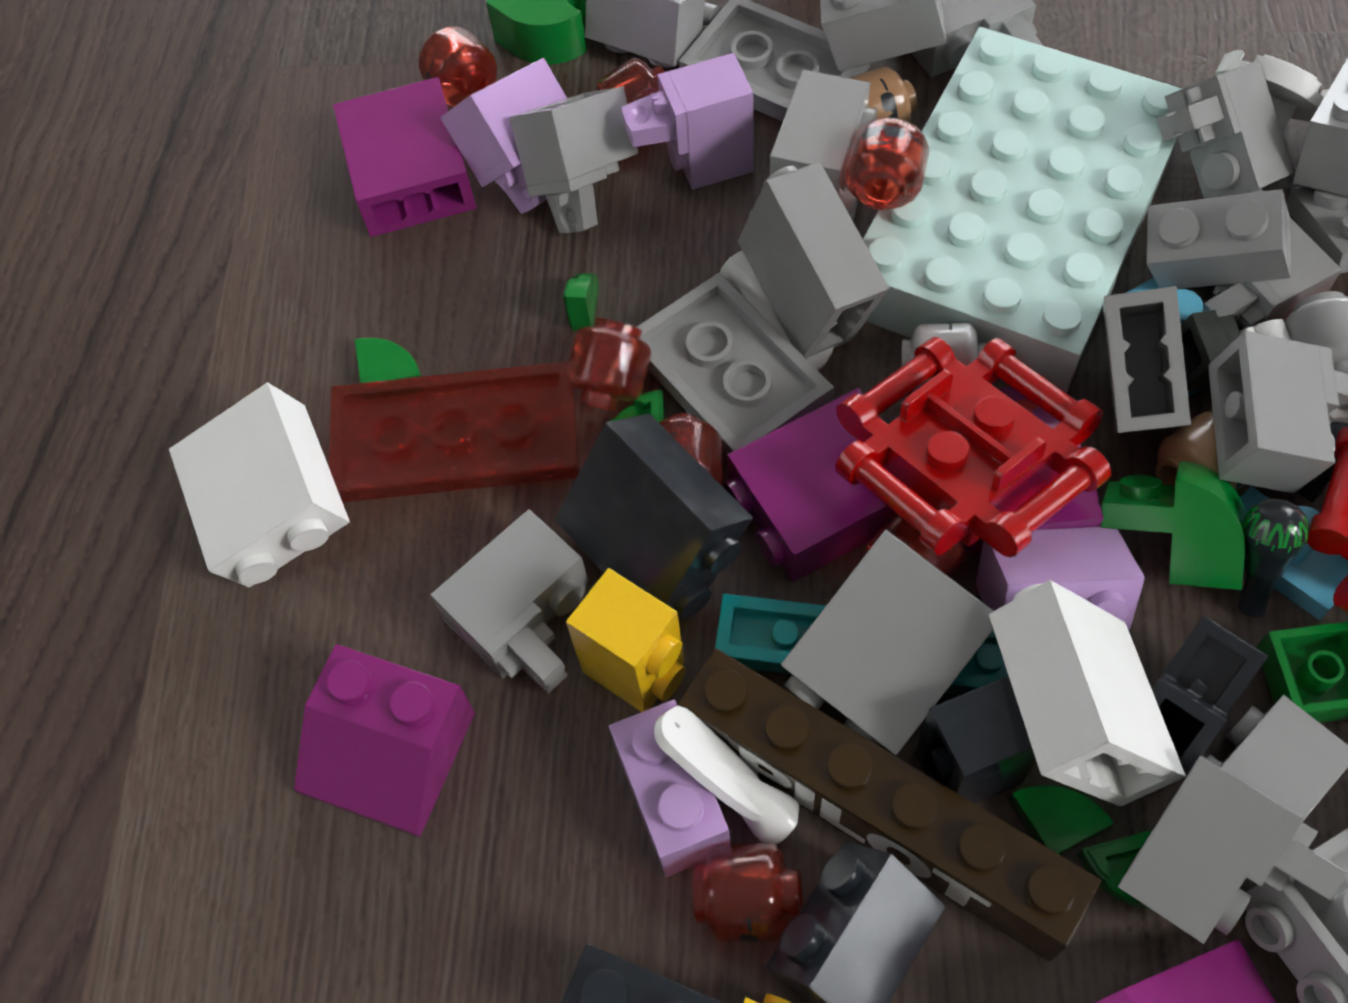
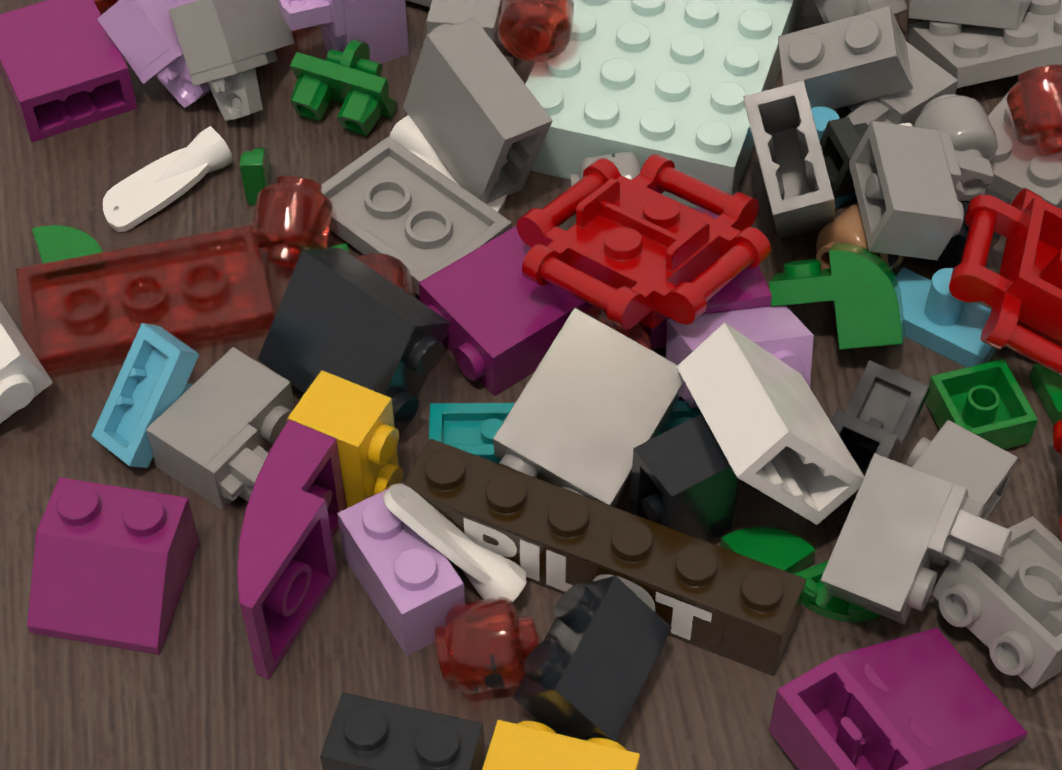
camera: 15 degrees left, 10 degrees down
(437, 546) = (145, 388): none -> medium azure tile
(490, 297) = (164, 180): none -> white piece
(553, 749) = (287, 541): none -> magenta slope
(700, 220) = (346, 79): none -> green hips
(1273, 538) = (922, 294): black piece -> none

